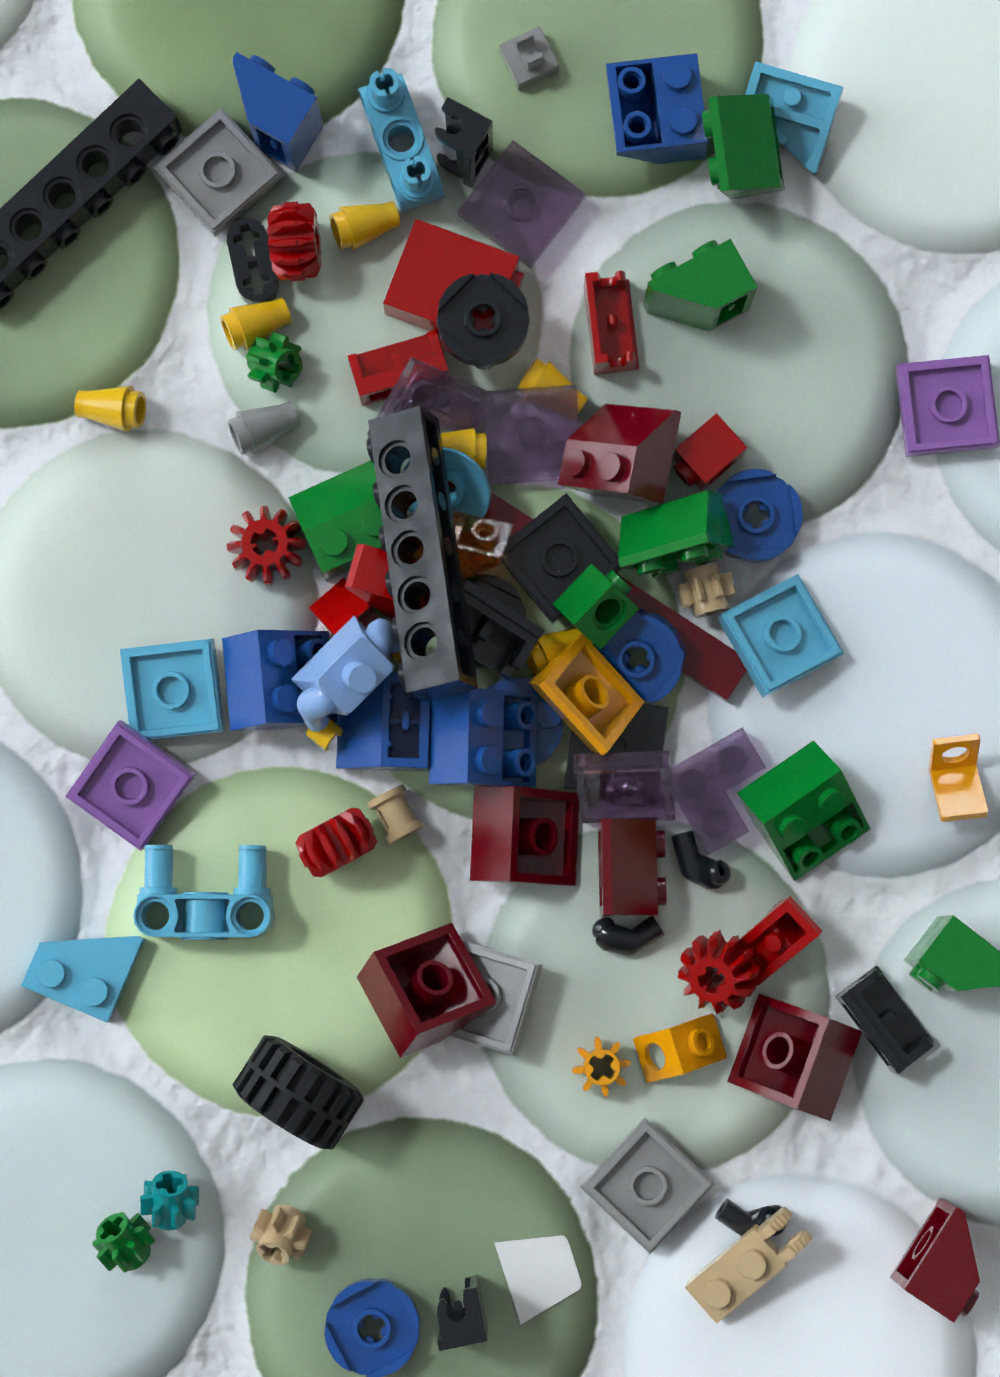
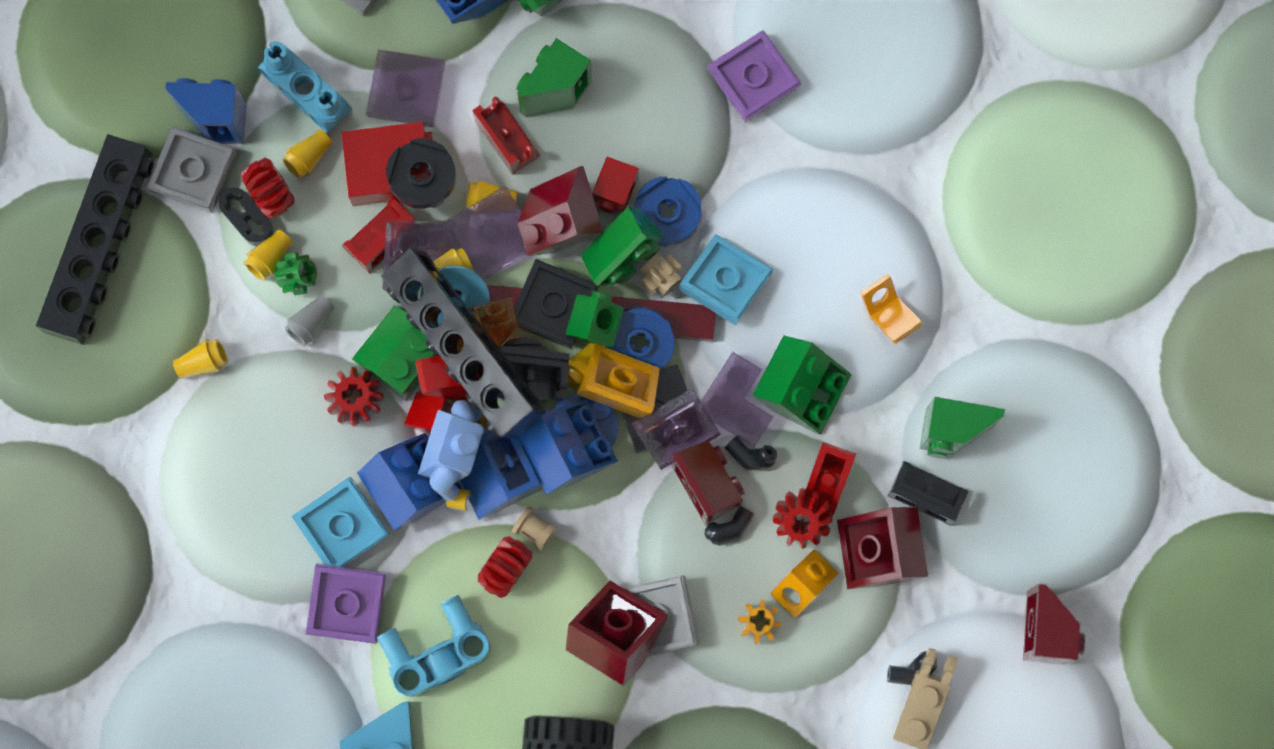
camera: 30 degrees left, 5 degrees down
(469, 136) = (349, 59): black hinge -> none
(524, 836) = (627, 497): dark red slope -> none
(647, 1185) = (831, 684): light grey plate -> none

